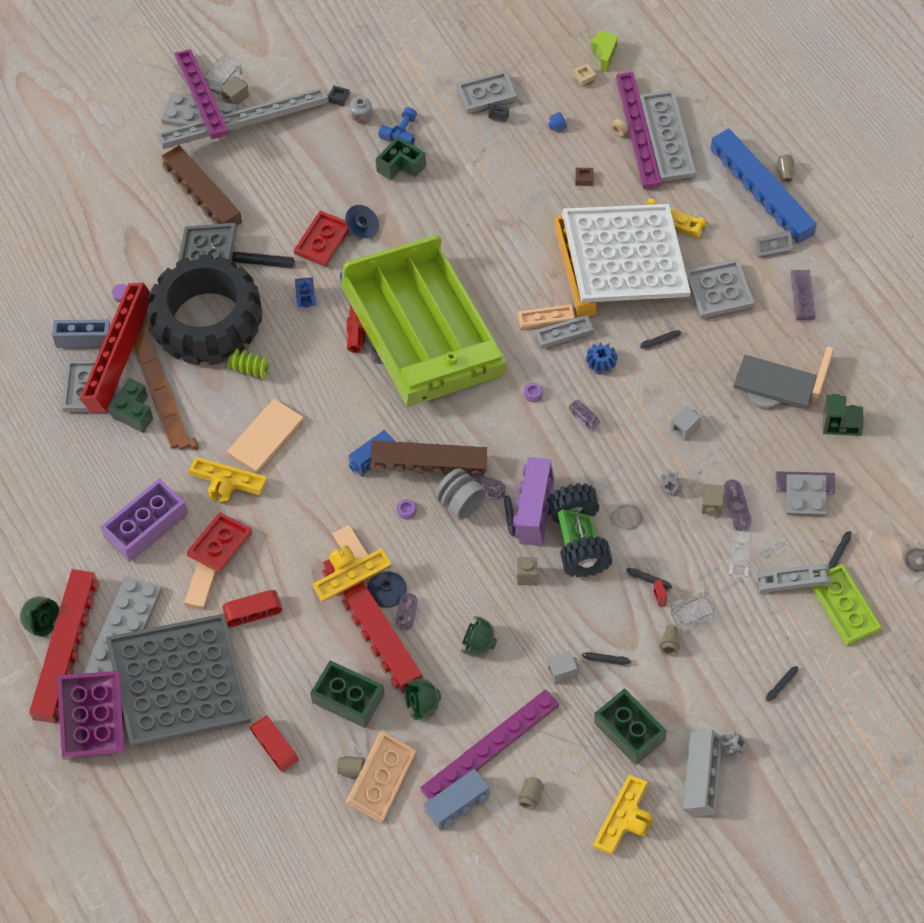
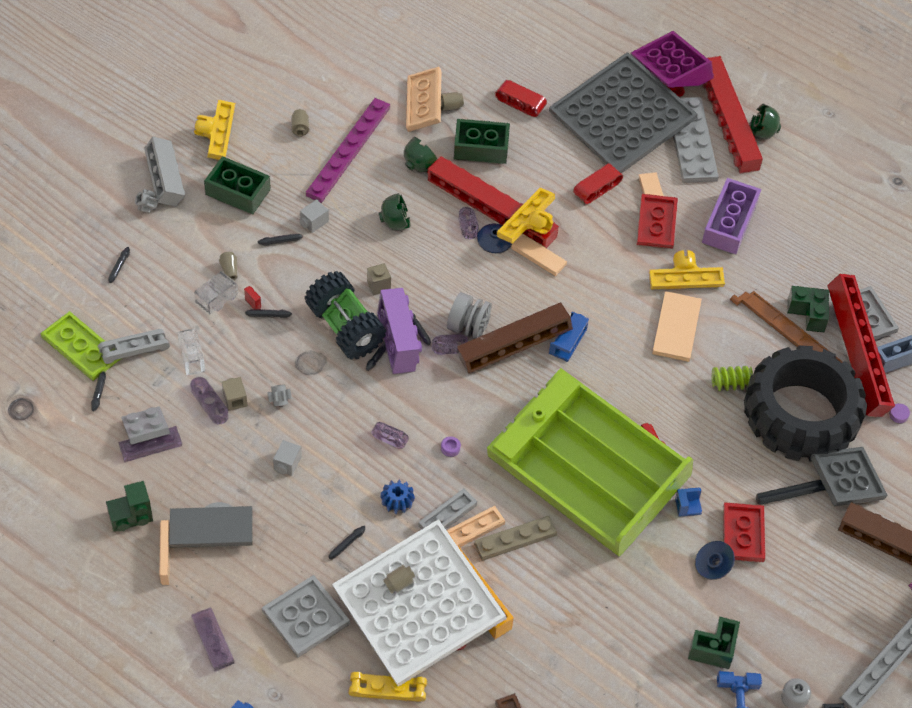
camera: 150 degrees right, 5 degrees down
(305, 292) = (725, 467): clear blue brick -> none
(406, 509) = (513, 304): medium lavender tile -> none
(457, 800) = (355, 102): sand blue brick -> none
(515, 297) = (515, 538): none -> dark tan plate
(636, 263) = (399, 579): none -> dark tan brick
(773, 243) = (271, 685): light grey plate -> none

